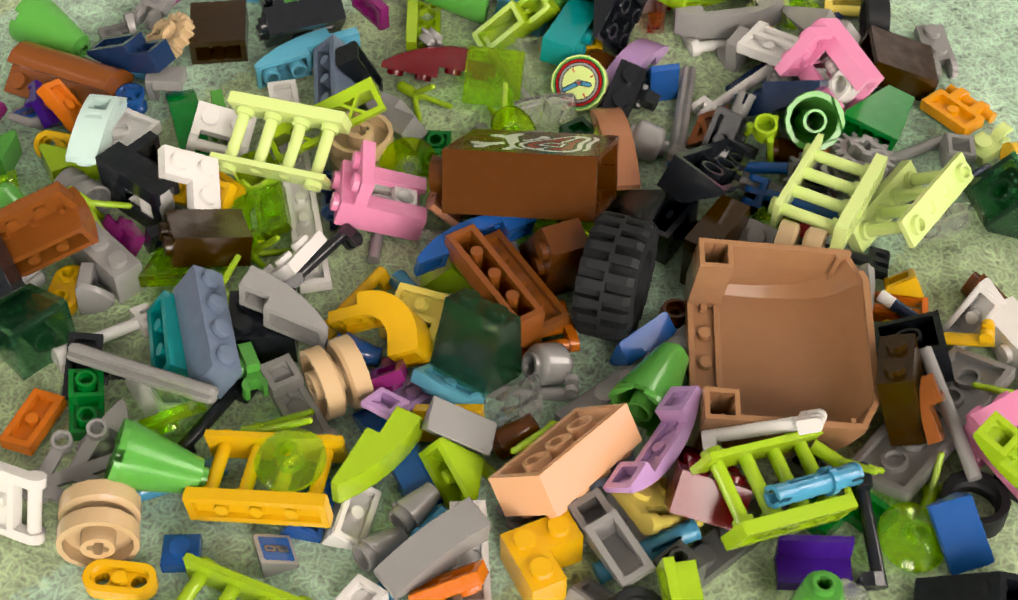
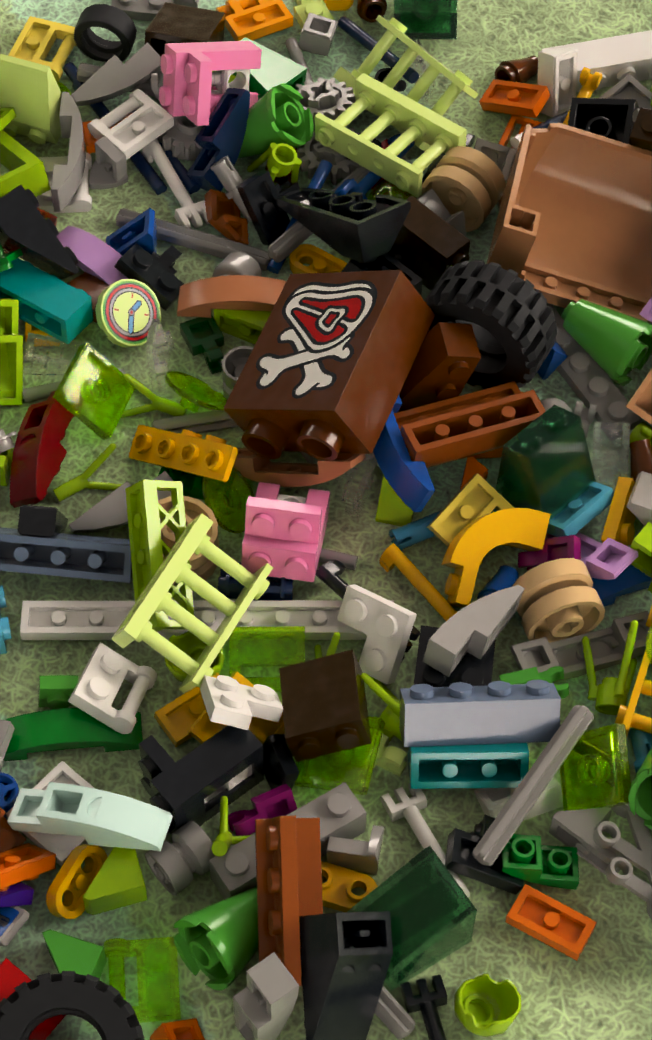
camera: 80 degrees left, 10 degrees up
(442, 128) = (184, 452): none -> yellow bracket
(904, 284) = (494, 124): yellow slope -> none
(942, 291) = (515, 98): none -> orange plate

